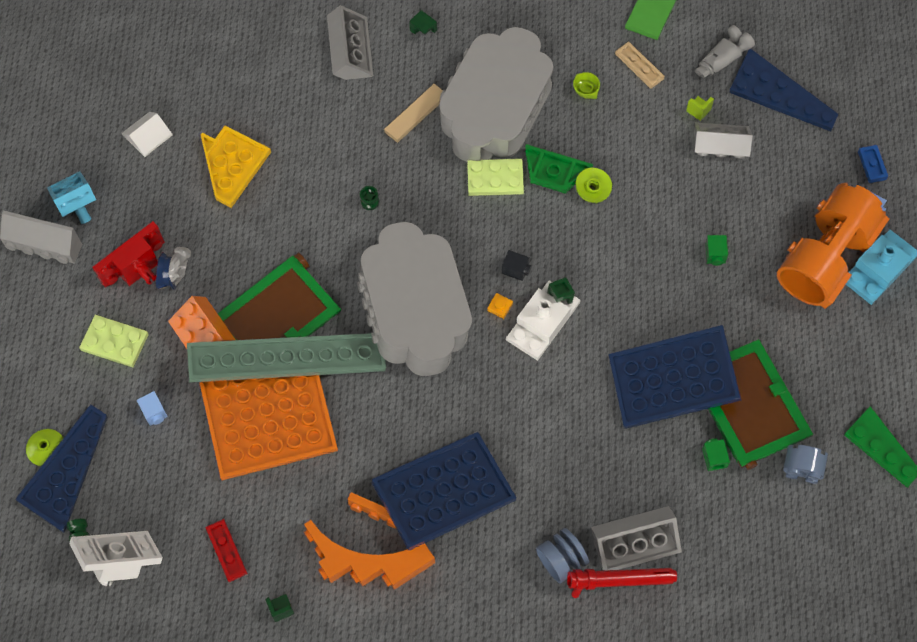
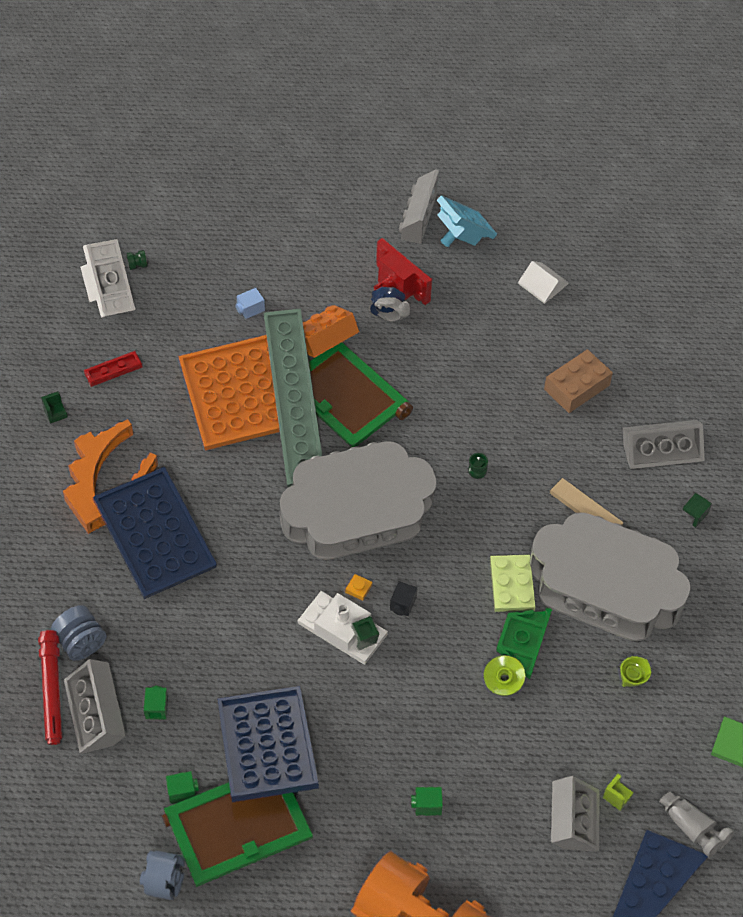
camera: 85 degrees right, 10 degrees down
(33, 448) = (219, 234): lime dish -> none
(59, 480) = (185, 243): dark blue wing -> none
(114, 341) = (320, 273): yellowish green plate -> none
(232, 163) = (512, 350): yellow wing -> none
(275, 107) = (578, 381): none -> medium nougat brick
(630, 481) = (155, 703): none -> green brick
(639, 65) = (672, 732): tan tile -> none

